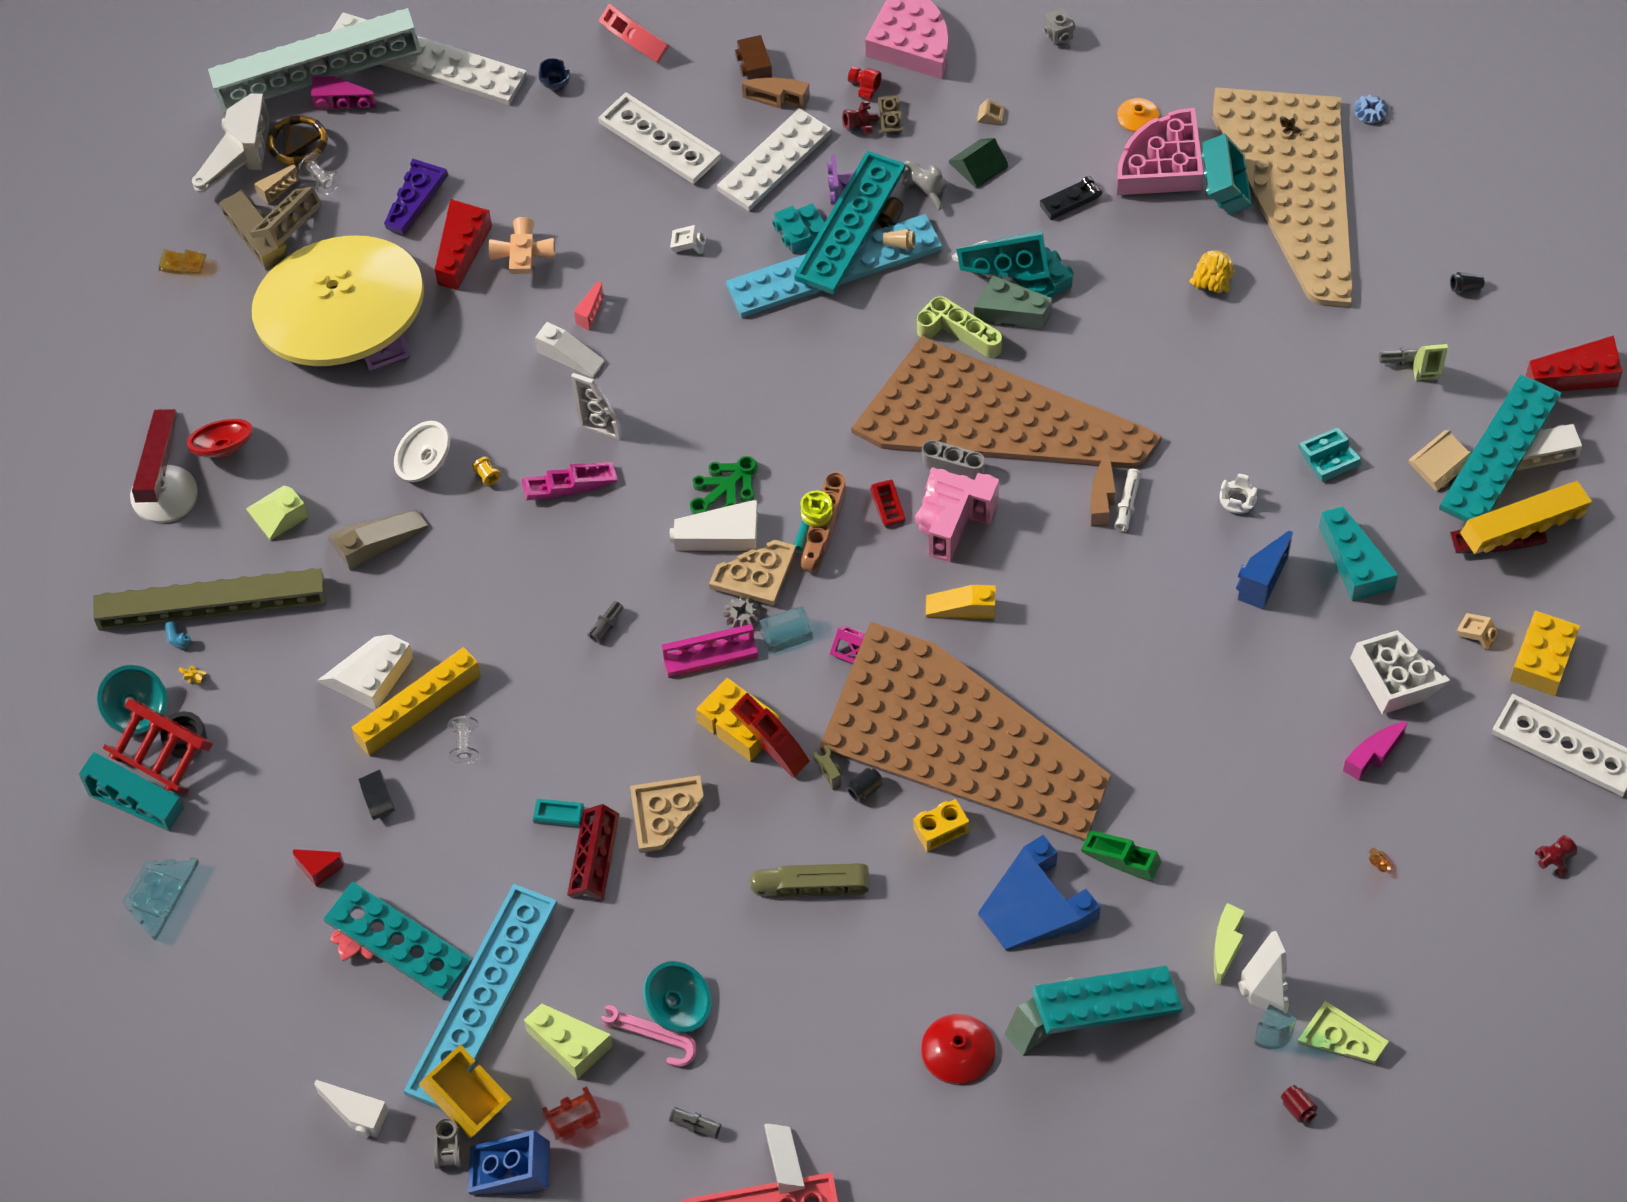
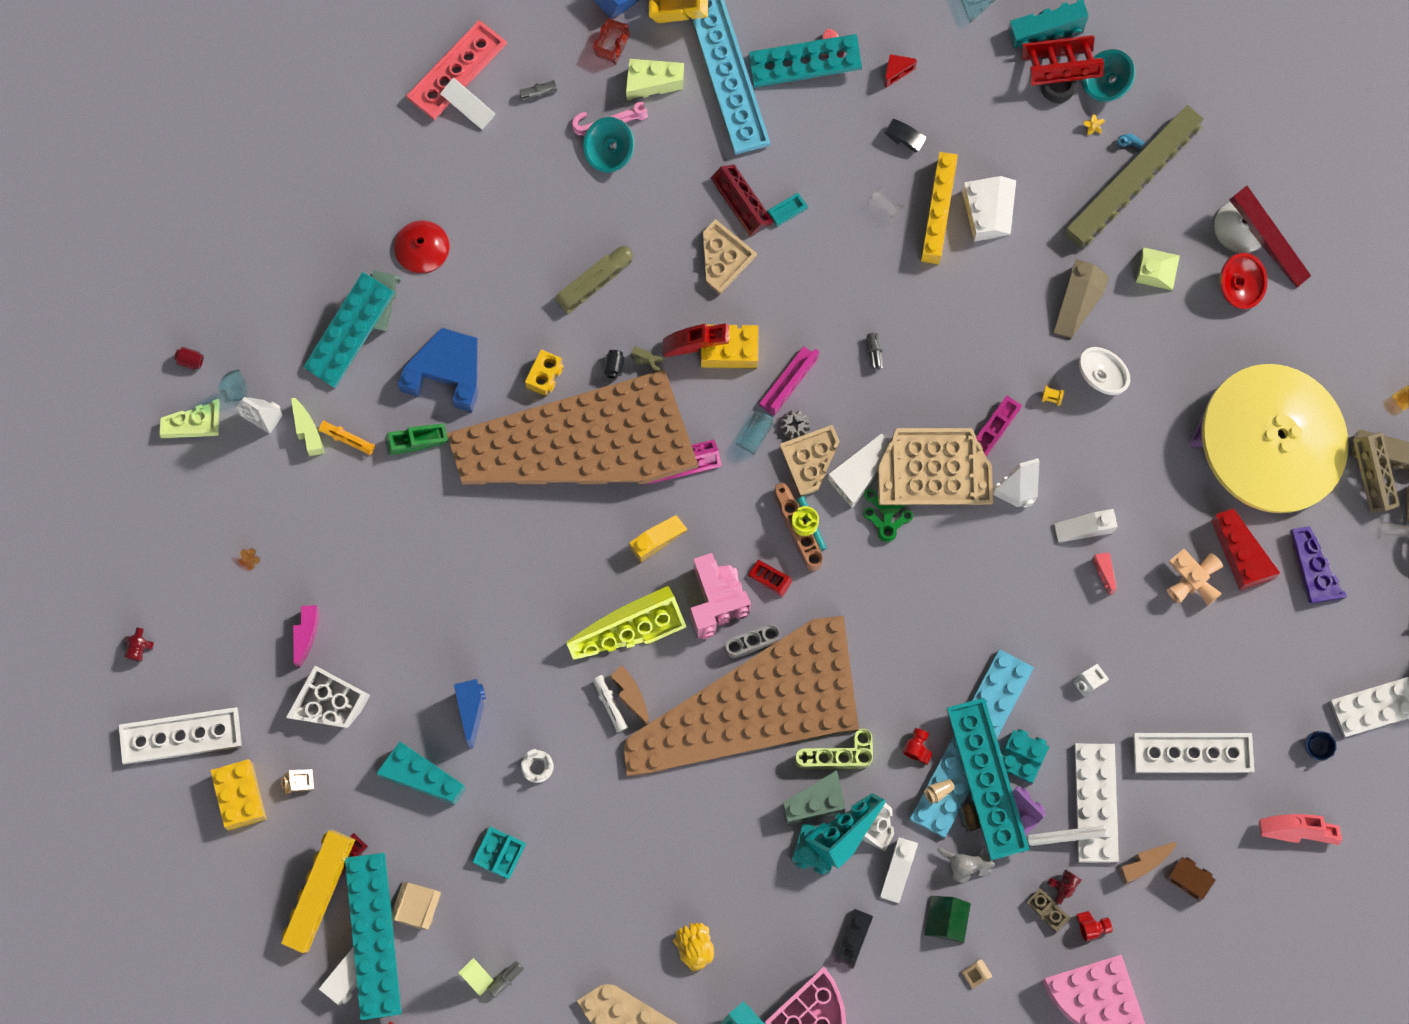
camera: 135 degrees right, 15 degrees up
(656, 479) = (934, 468): none -> tan plate
(822, 145) = (1067, 835): none -> white axle
(887, 289) = (915, 749): none -> red piece
(984, 217) = (898, 870): none -> white slope
(1038, 545) = (632, 624): none -> neon yellow wedge
(1195, 913) = (340, 434): none -> light orange pin

